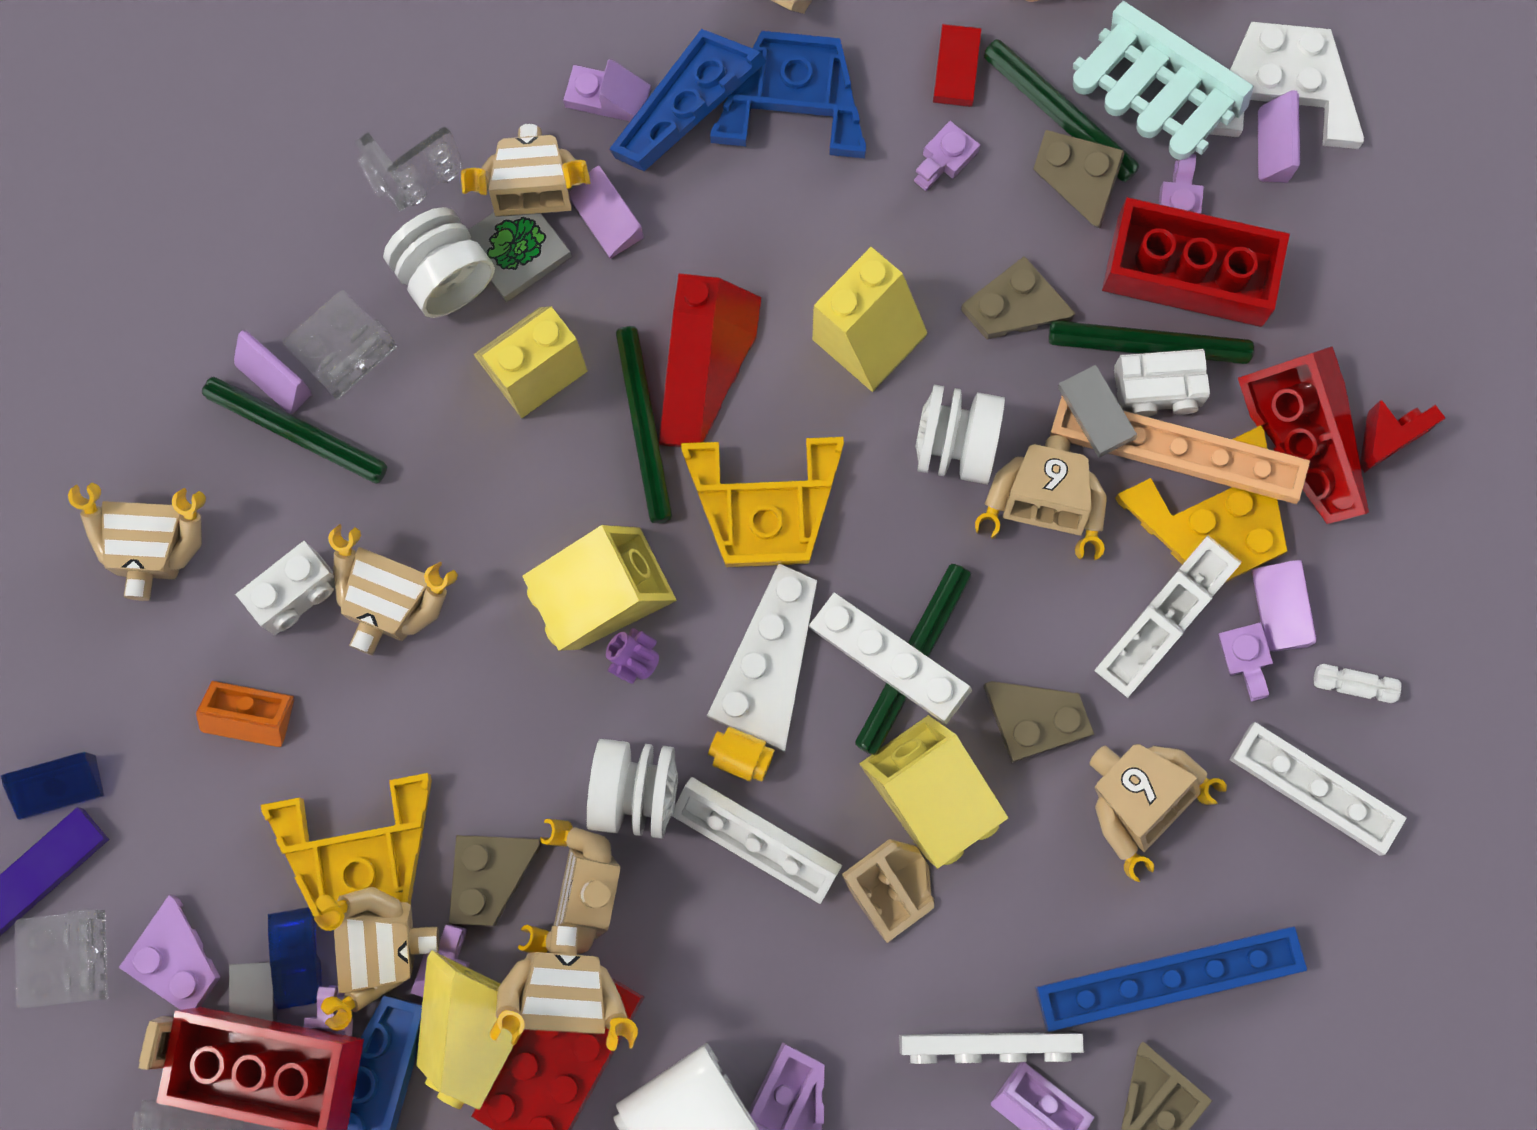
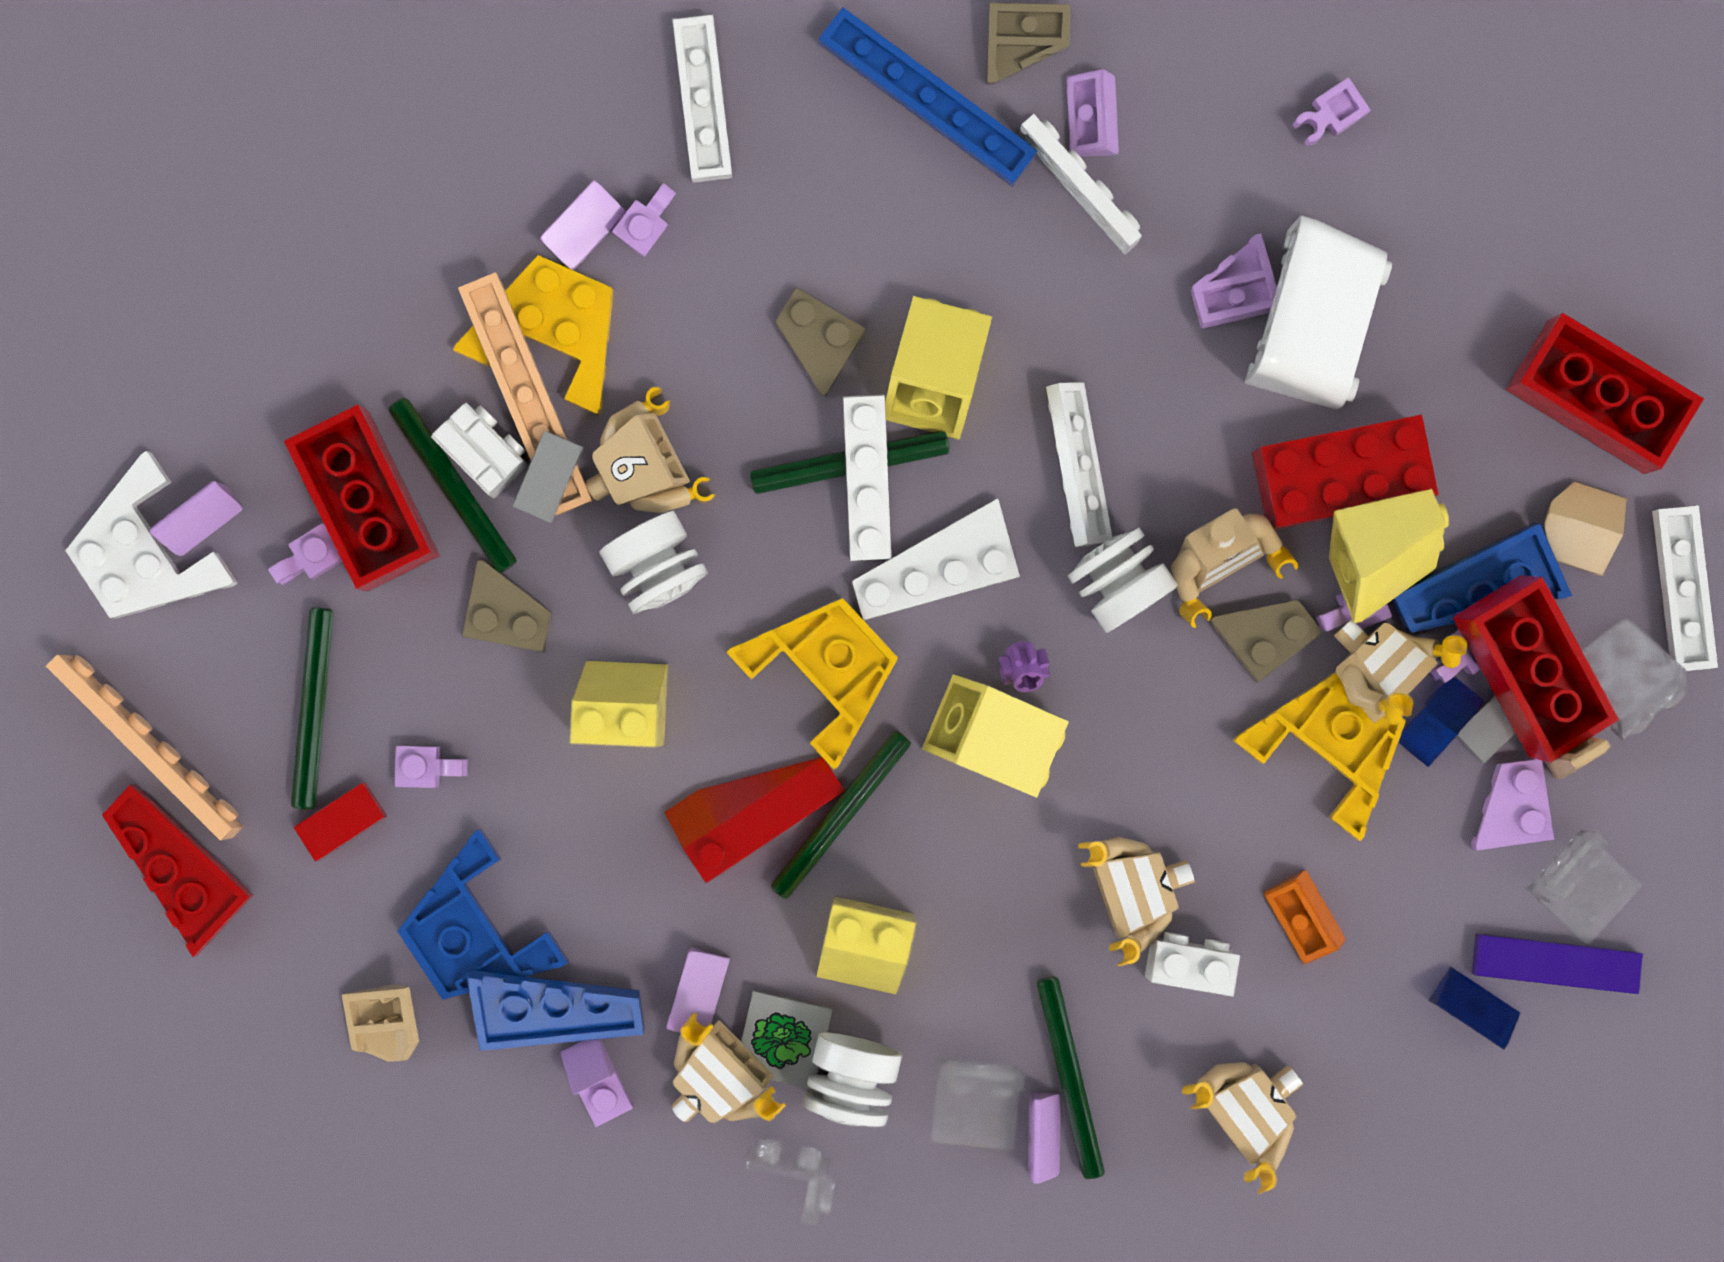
camera: 135 degrees left, 10 degrees up
(562, 994) = (1311, 495): torso -> none
(741, 754) = (1027, 526): yellow brick -> none
(891, 887) = (1029, 339): tan slope -> none
(1079, 172) = (356, 649): dark tan wing -> none
(1145, 795) = (813, 213): tan torso -> none
(1167, 616) = (662, 302): white slope -> none
(1178, 65) = (198, 665): light aqua fence -> none
(1309, 417) = (418, 317): red wedge -> none
(1357, 683) = (597, 129): white axle -> none
(1387, 435) = (387, 248): red slope -> none

